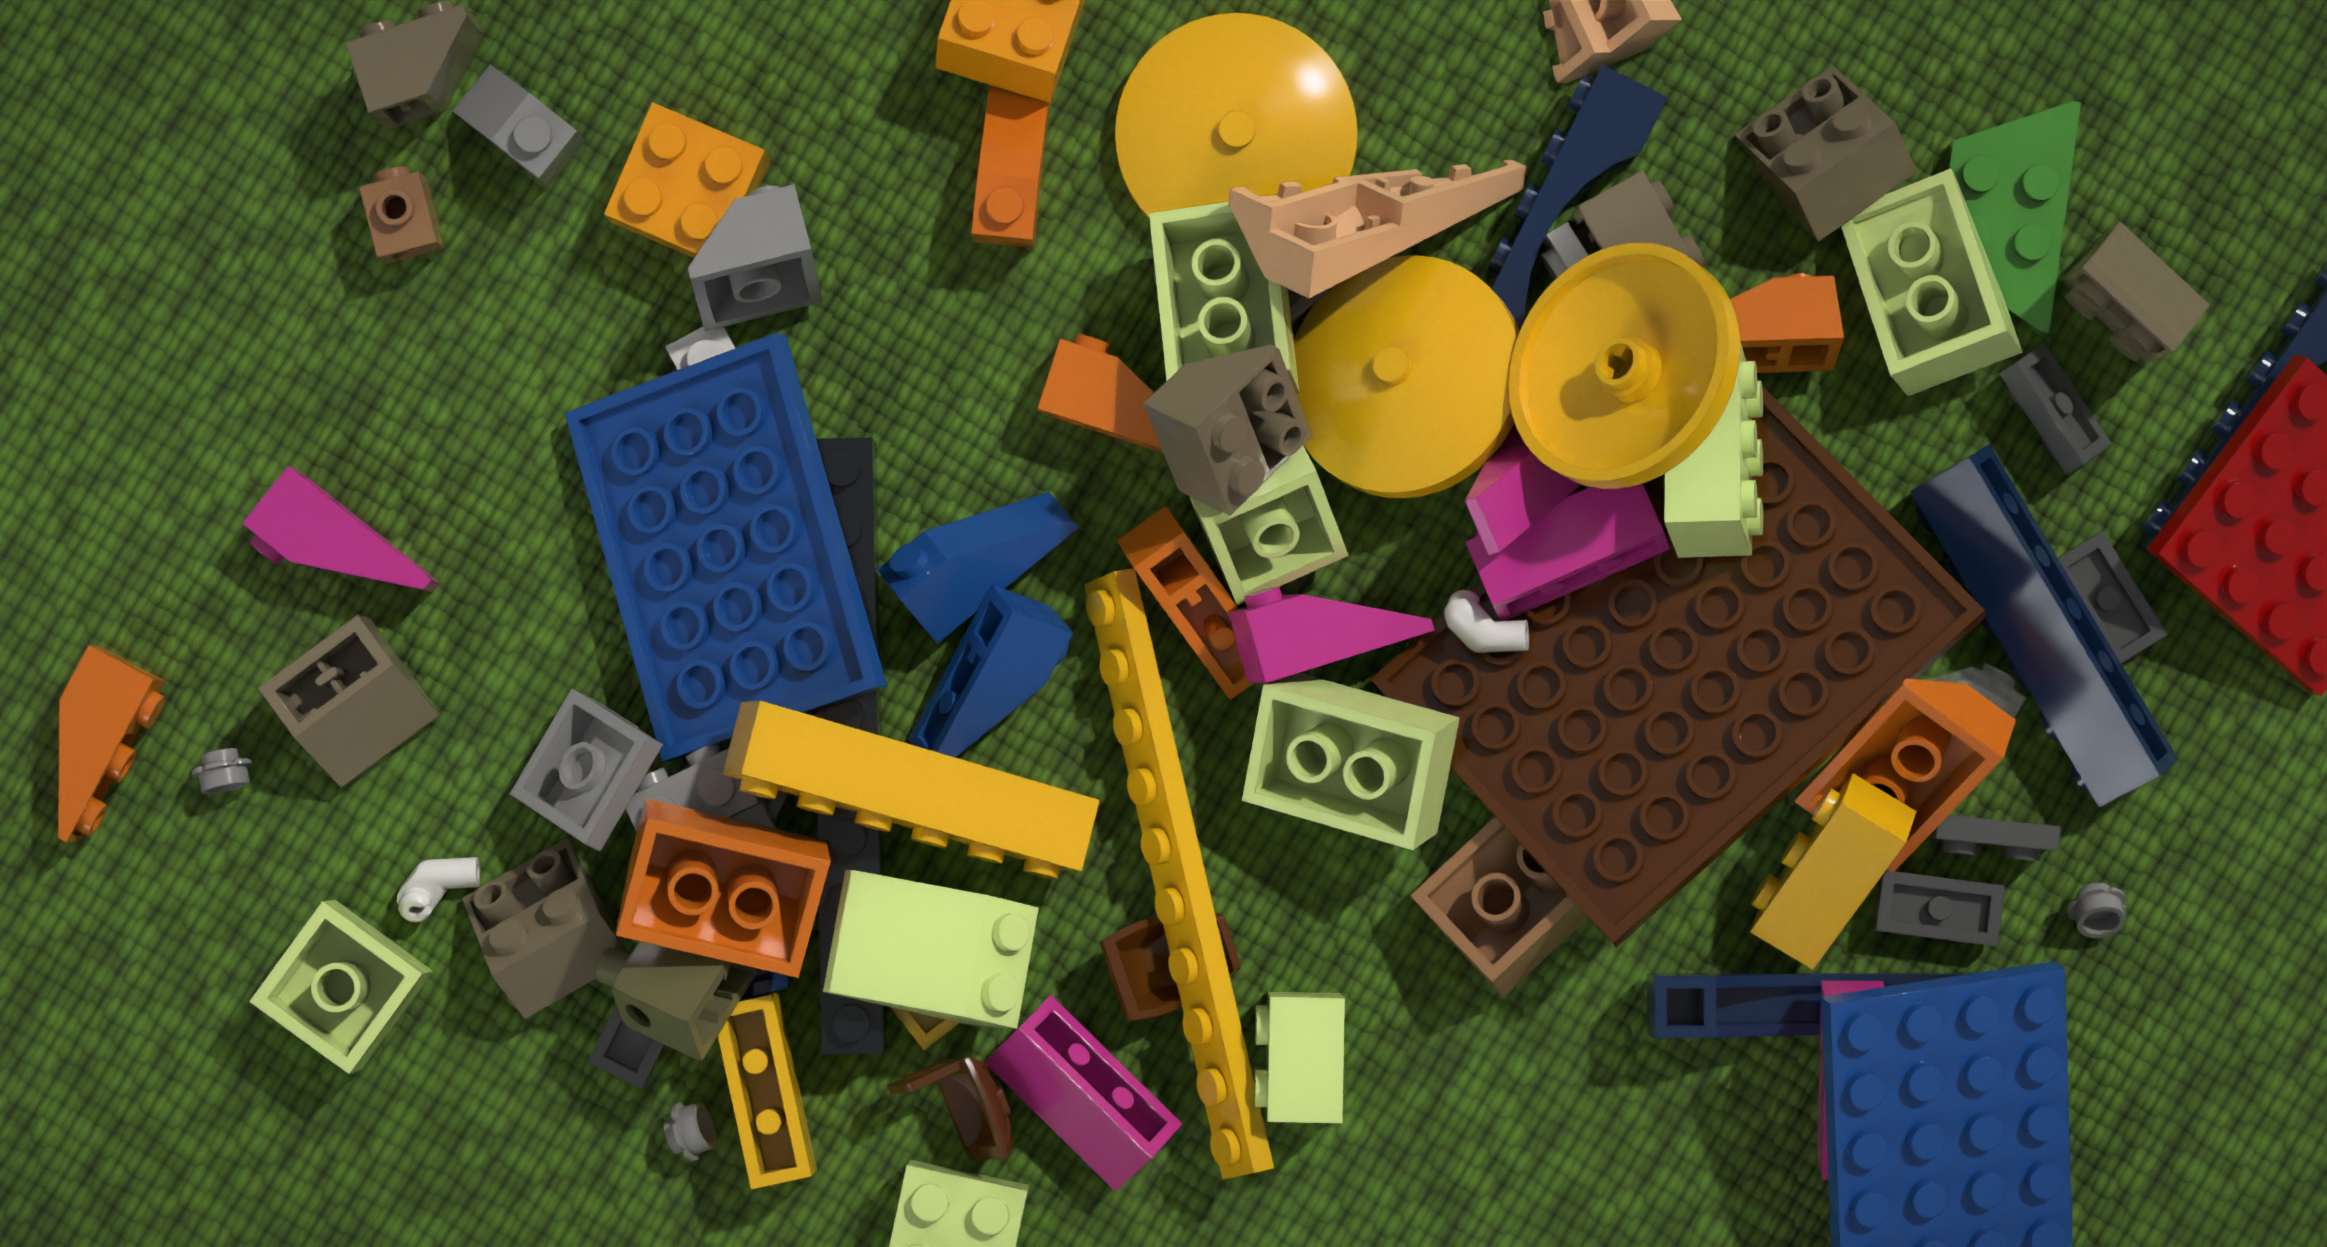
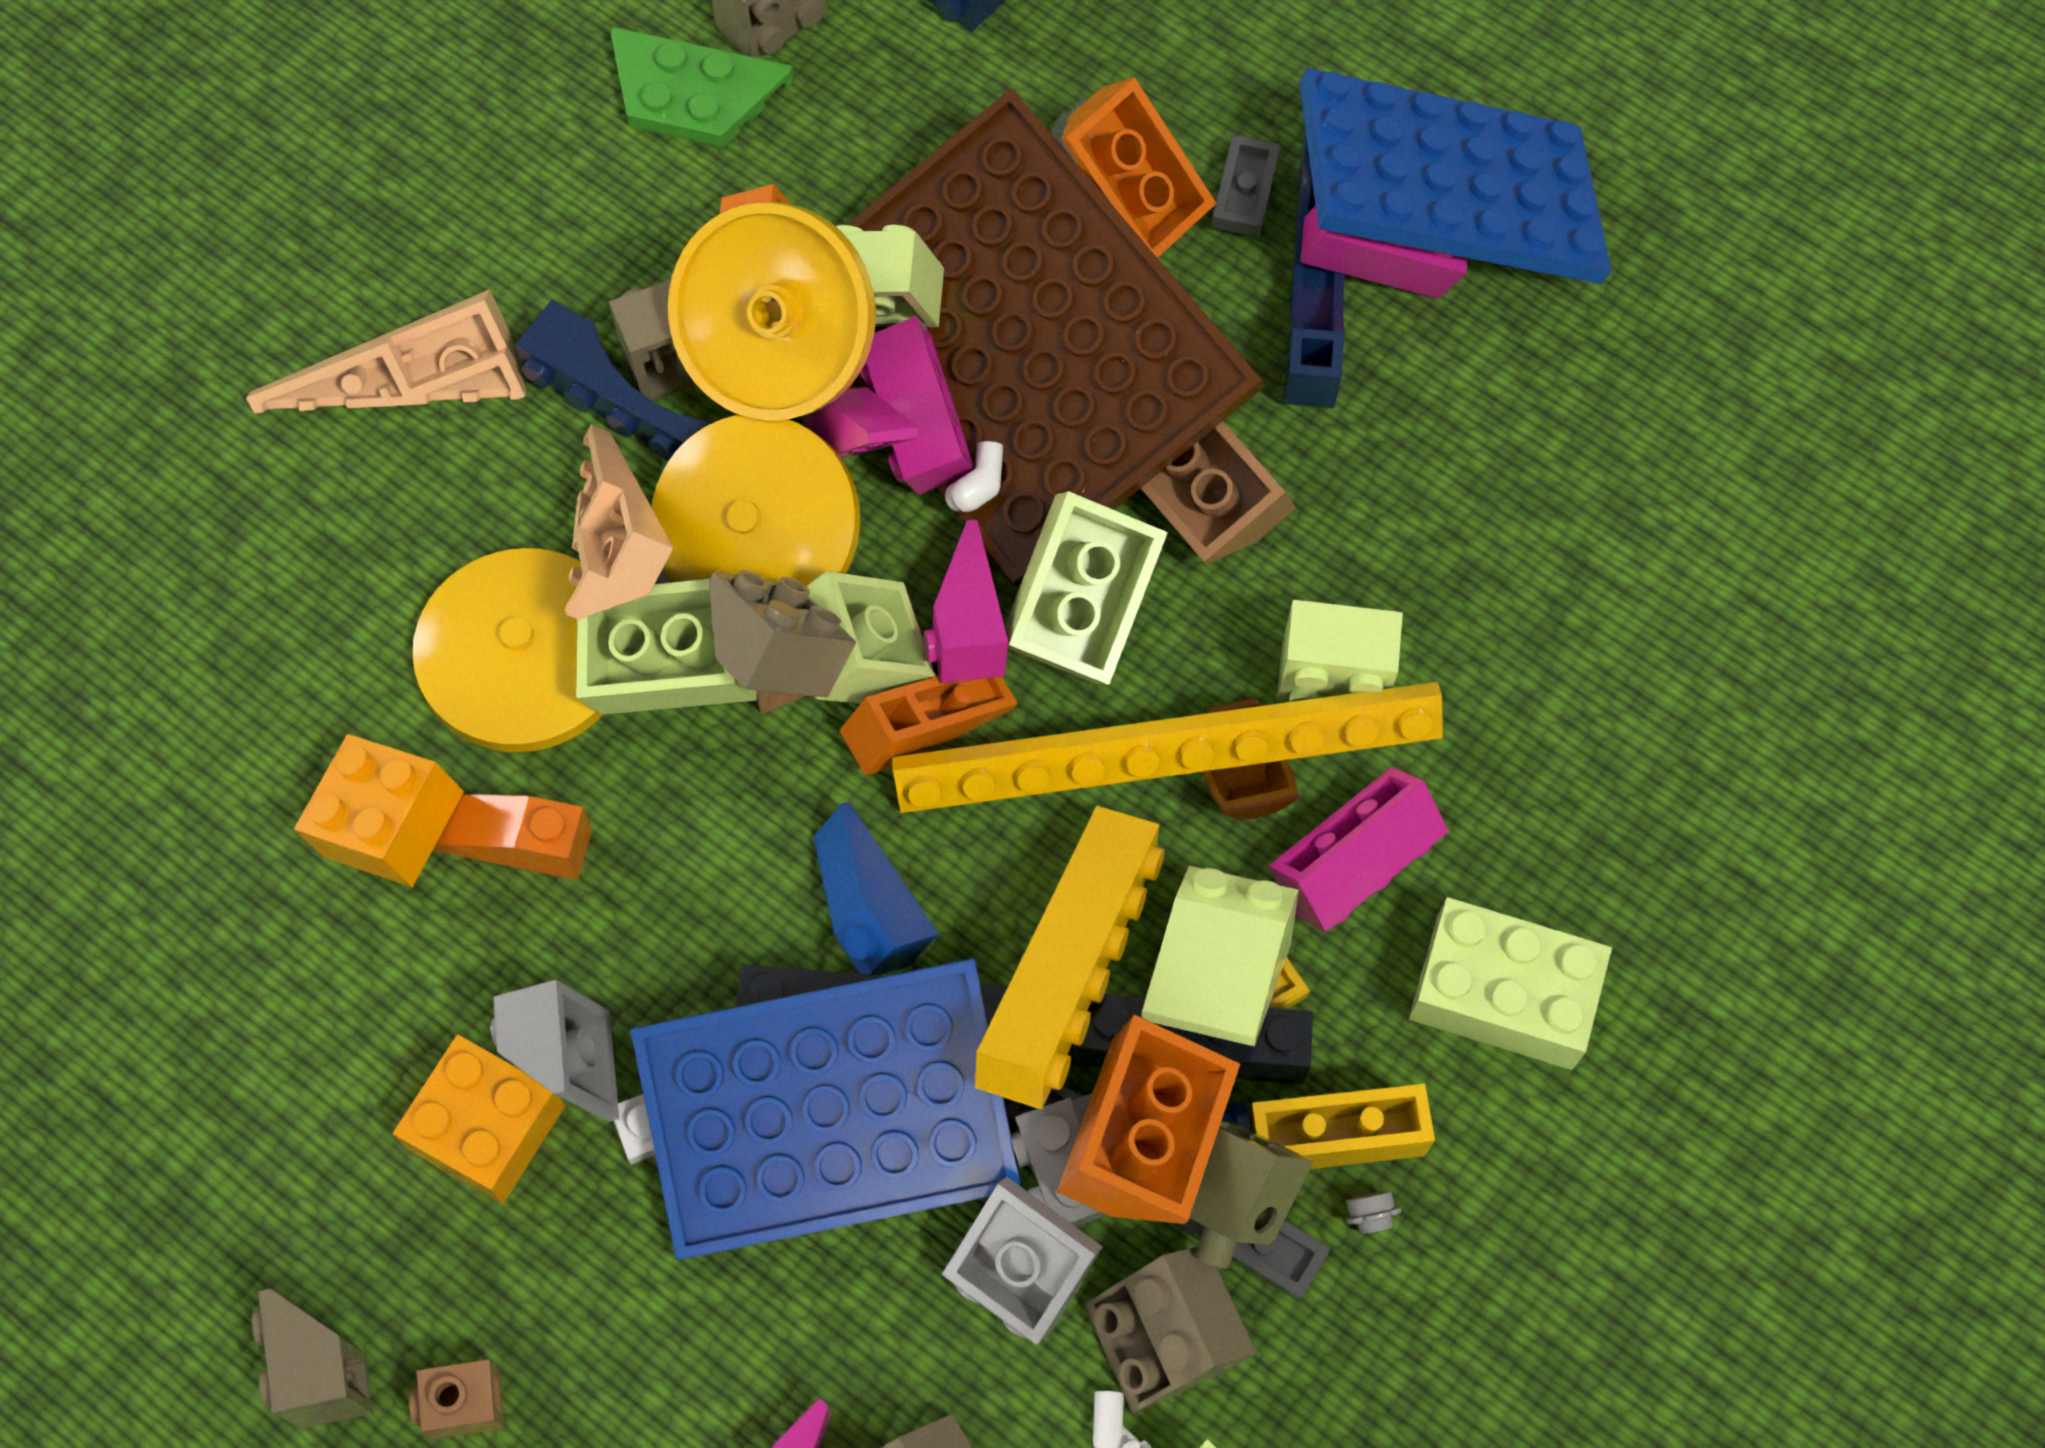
camera: 85 degrees left, 20 degrees down
(519, 125) = (390, 1276): light grey slope -> none
(973, 1102) = (1364, 950): reddish brown piece -> none
(993, 670) = (969, 889): blue slope -> none
(1097, 392) = (739, 765): orange slope -> none
(1562, 250) = (675, 392): white plate -> none
(1827, 152) = (619, 200): dark tan slope -> none
(1830, 869) = (1211, 238): yellow brick -> none
(1929, 284) = (739, 133): yellowish green slope -> none
(2019, 839) = (1195, 123): dark grey plate -> none
(2043, 627) = (1041, 77): dark blue brick -> none
(2055, 409) = (870, 60): dark grey plate -> none
(2098, 910) = (1257, 77): light grey plate -> none
(2112, 596) = (1010, 48): dark grey plate -> none

